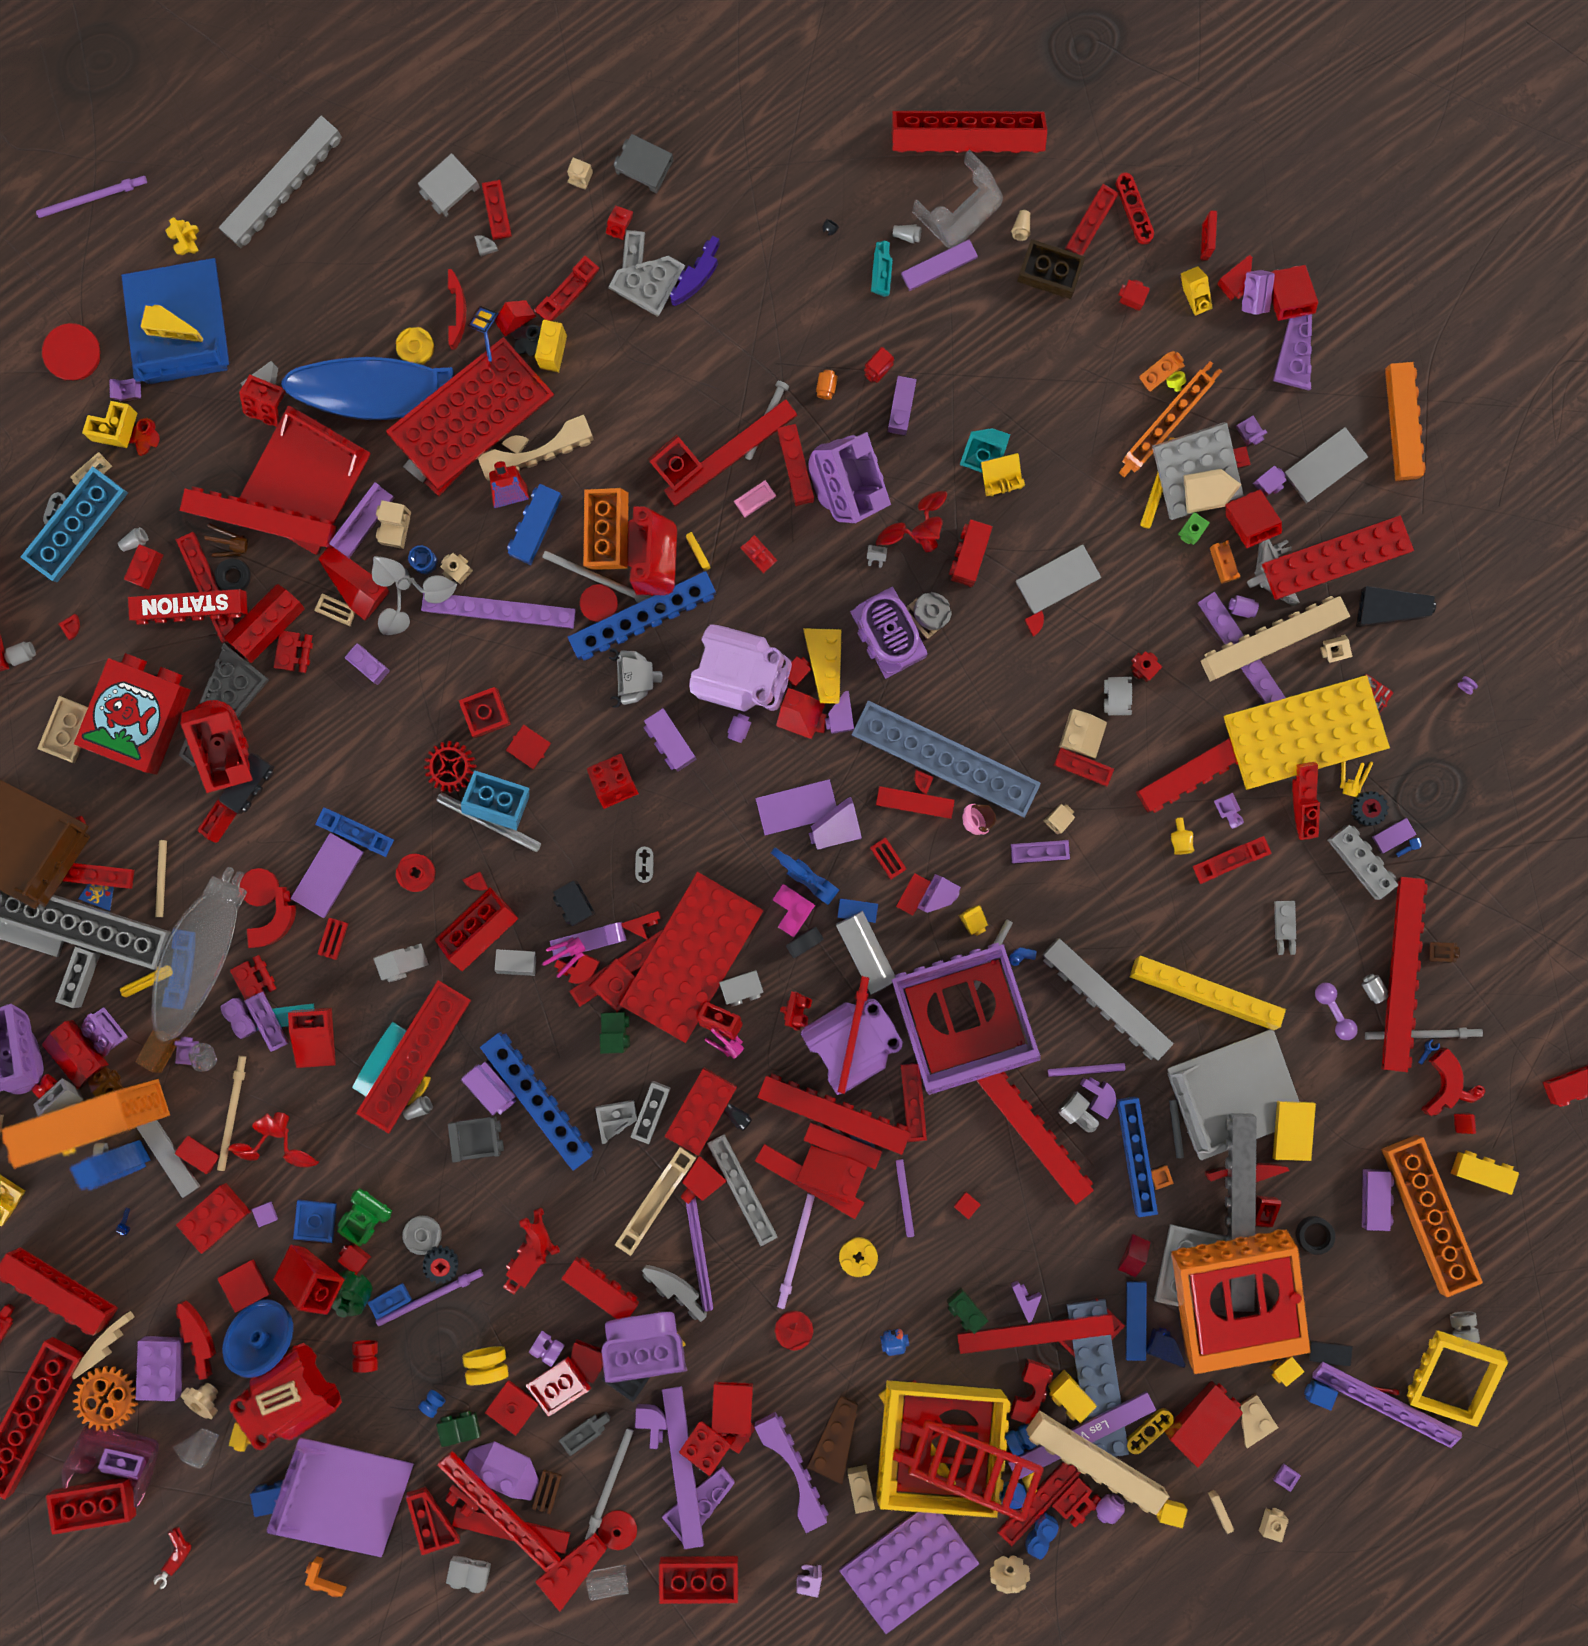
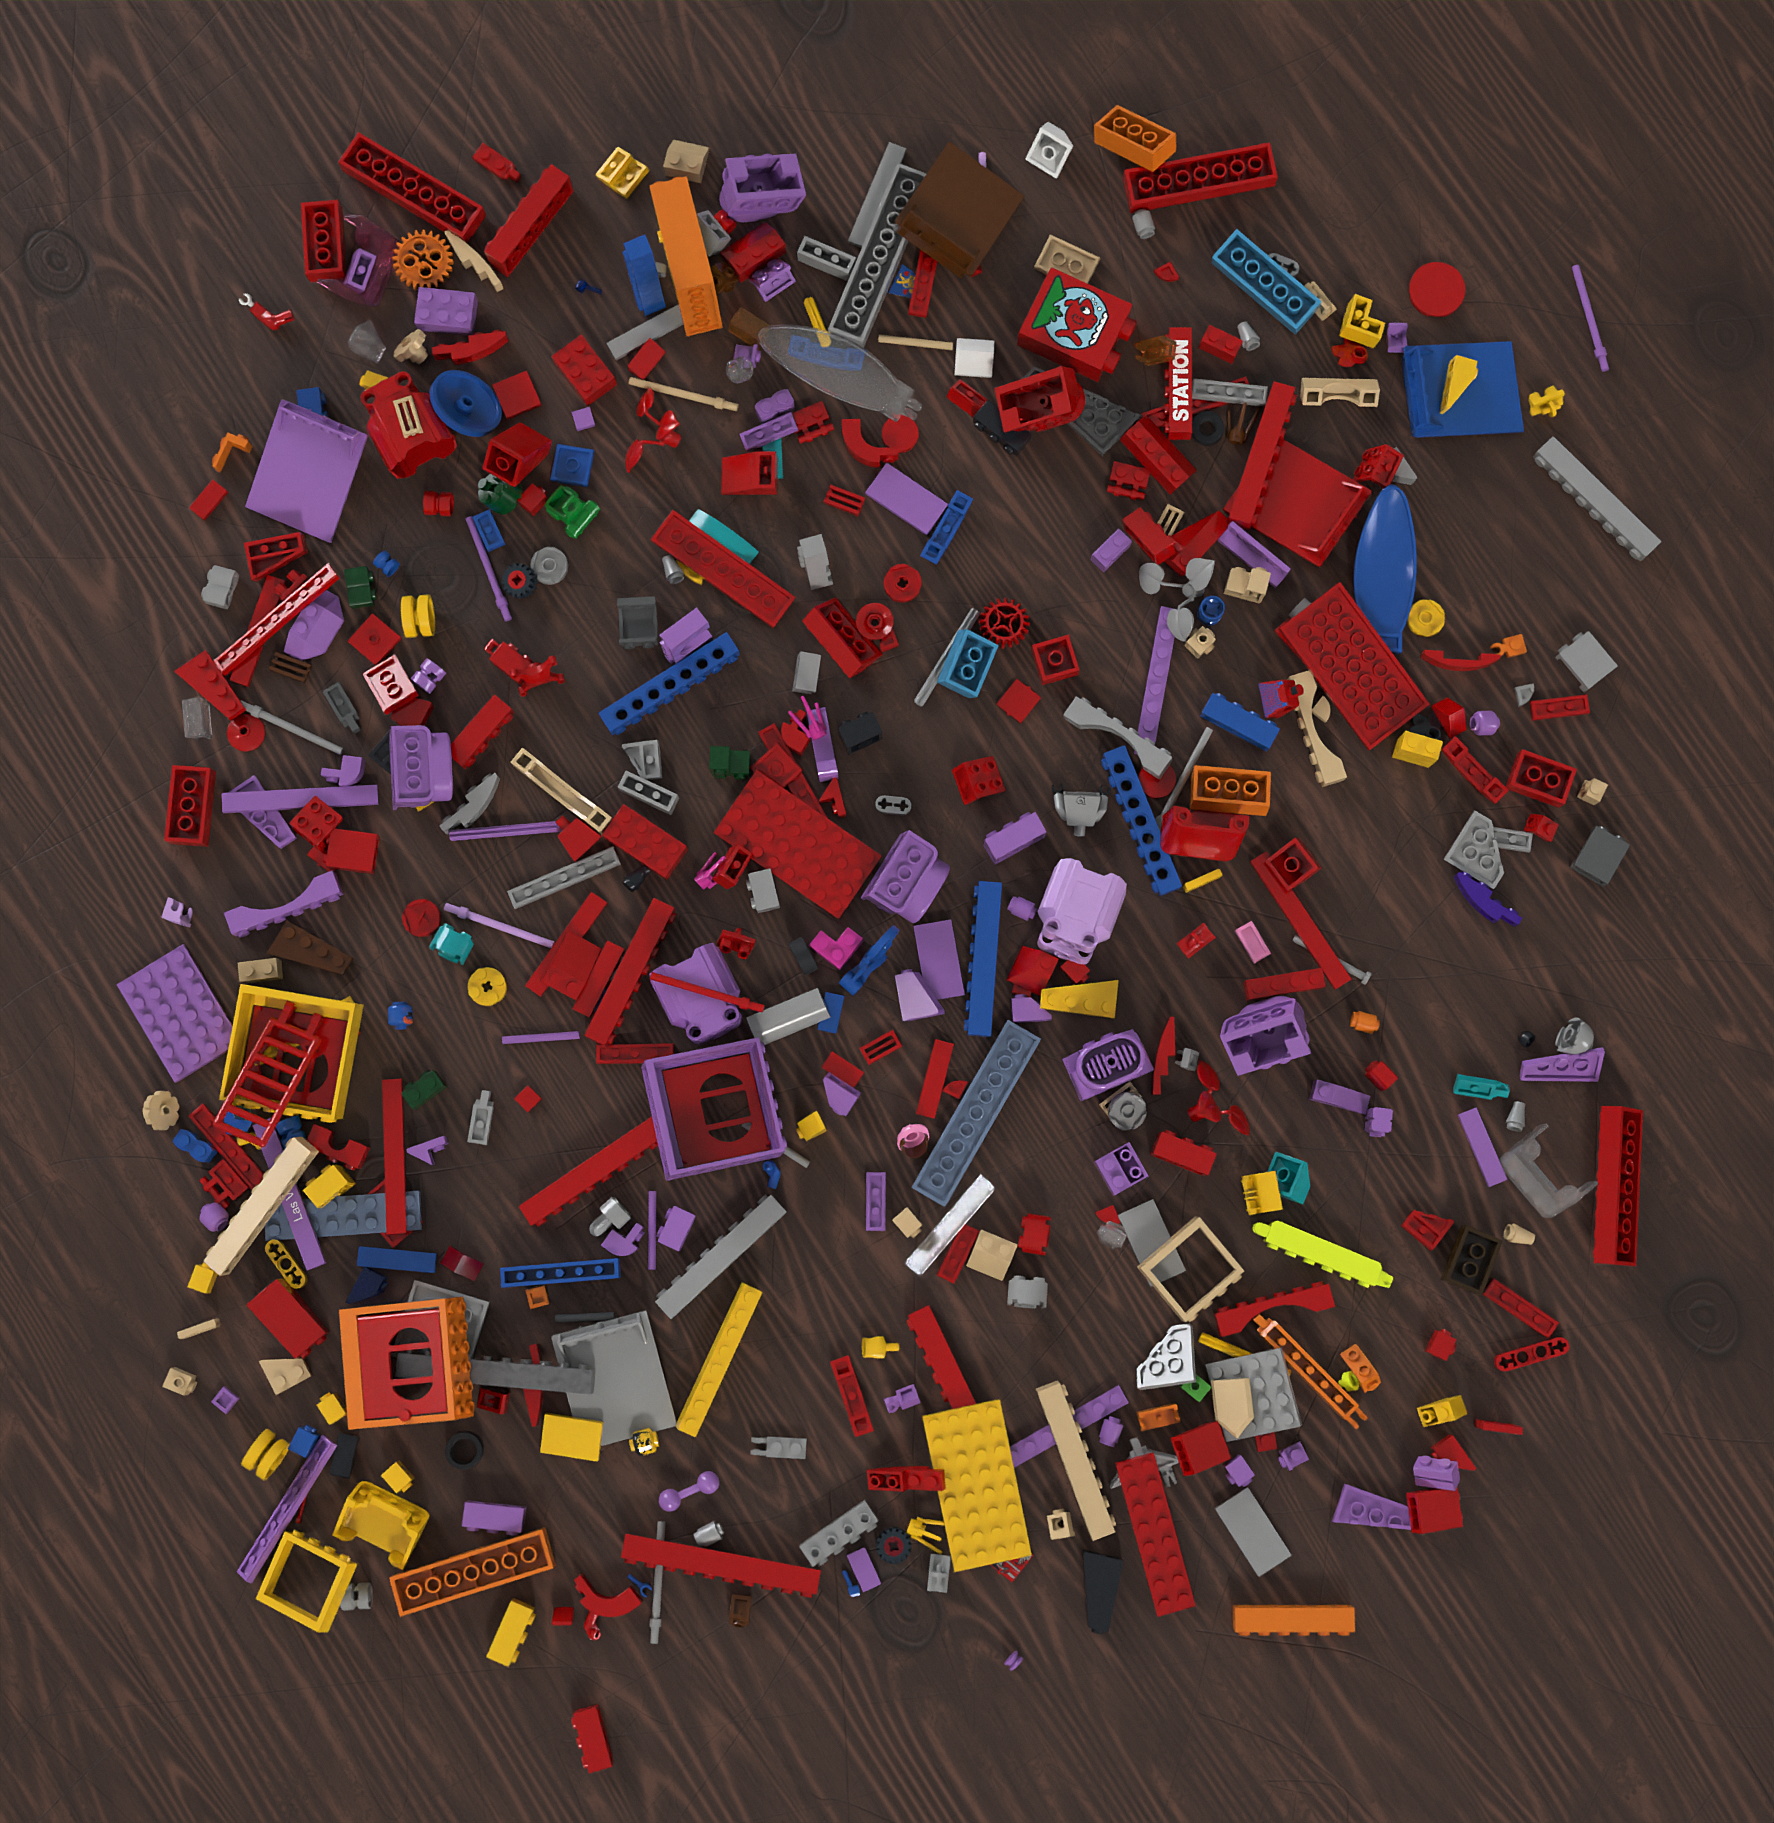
camera: 95 degrees right, 5 degrees down
(154, 631) = (1156, 350): none -> clear orange hinge
(173, 817) = (974, 357): none -> white slope
(184, 422) = (1359, 391): none -> tan arch
(193, 554) = (1229, 392): none -> light grey tile
(350, 626) = (1149, 536): none -> red brick
(377, 1596) = (208, 500): none -> red tile
(438, 260) = (1511, 646): none -> orange plate
(447, 897) = (873, 612): none -> red dish
(482, 321) = (1446, 684): piece -> none
(518, 282) = (1484, 723): none -> medium lavender head
(540, 677) = (1085, 716): none -> light grey arch
(571, 223) = (1541, 778): none -> red brick
(719, 844) = (907, 878): none -> medium lavender brick
(793, 762) = (984, 959): none -> blue brick
(820, 1296) = (451, 944): none -> teal brick
(827, 179) = (1575, 1038): none -> light grey cylinder
(856, 188) = (1564, 1067): none -> medium lavender wing
(868, 578) = (1165, 1049): none -> red slope
(924, 365) = (1378, 1121): none -> medium lavender brick
(990, 613) = (1121, 1168): none -> medium lavender slope
(991, 1250) = (481, 1119): none -> light grey hinge
(1022, 314) = (1426, 1228): none -> red wing
(1055, 412) = (1324, 1253): none -> neon yellow hinge
(1055, 618) = (1112, 1235): none -> clear head
(1058, 776) = (950, 1225): none -> clear tile
(1061, 692) = (1035, 1234): none -> red brick
(1063, 561) = (1168, 1247): none -> tan window
(1083, 1045) = (676, 1228): none -> medium lavender brick
(1126, 494) = (1234, 1319): none -> red arch
(1151, 663) = (1051, 1329): red brick -> none
(1171, 553) = (1170, 1360): none -> plate
(1292, 1059) = (644, 1442): none -> yellow head
(1340, 1429) = (265, 1454): none -> yellow wheel
(1347, 1297) = (398, 1477): none -> yellow brick
(1389, 1309) = (383, 1521): none -> yellow windscreen
(1392, 762) = (938, 1573): none -> light grey hips

